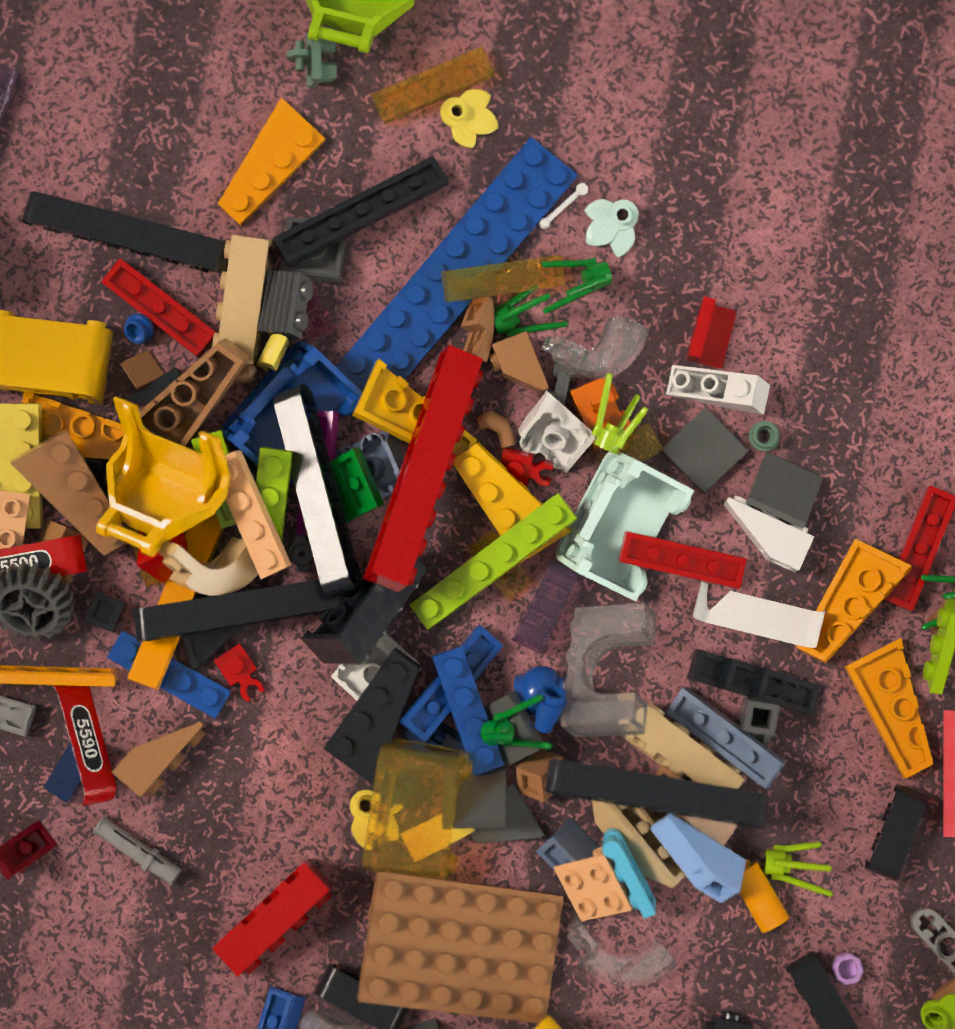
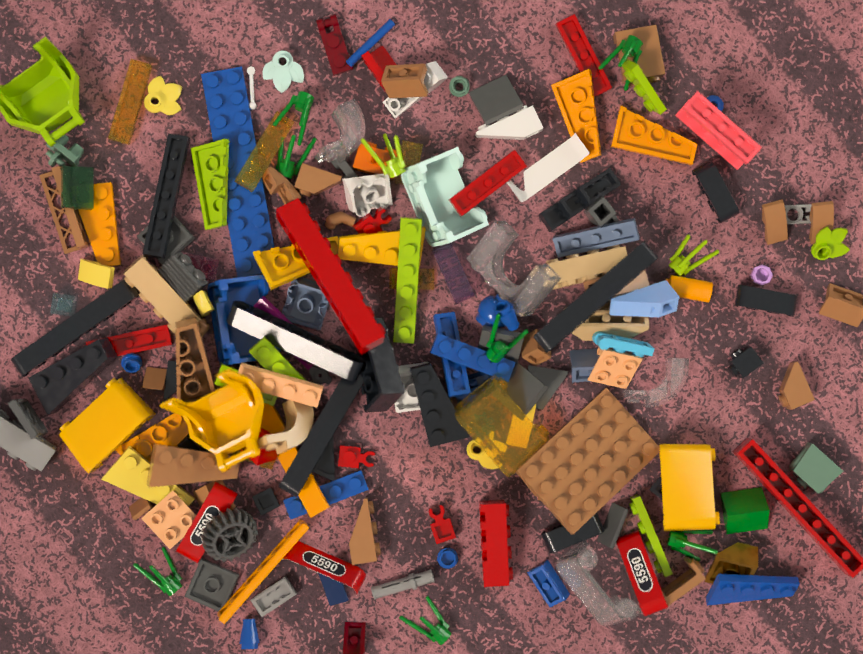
camera: 45 degrees left, 5 degrees up
(61, 269) = (68, 376): none -> black wedge
(114, 940) = (437, 632): none -> green plant
(142, 199) = (63, 304): none -> clear light blue slope
(207, 206) = (96, 273): none -> light yellow slope
(211, 877) = (447, 558): none -> blue plate
(240, 841) = (441, 528): none -> red plate
(255, 117) = (73, 217): none -> medium nougat fence
(286, 105) = (77, 187): none -> clear green plate
(355, 485) = (308, 318): green wing -> none
(425, 244) = (212, 181): none -> lime wing
(689, 258) = (334, 45): none -> dark red plate
(704, 450) = (441, 123): dark grey tile -> none
(717, 368) = (405, 80): none -> medium nougat panel
(727, 295) = (370, 42): none -> blue bar
(921, 932) = (775, 222): none -> medium nougat slope

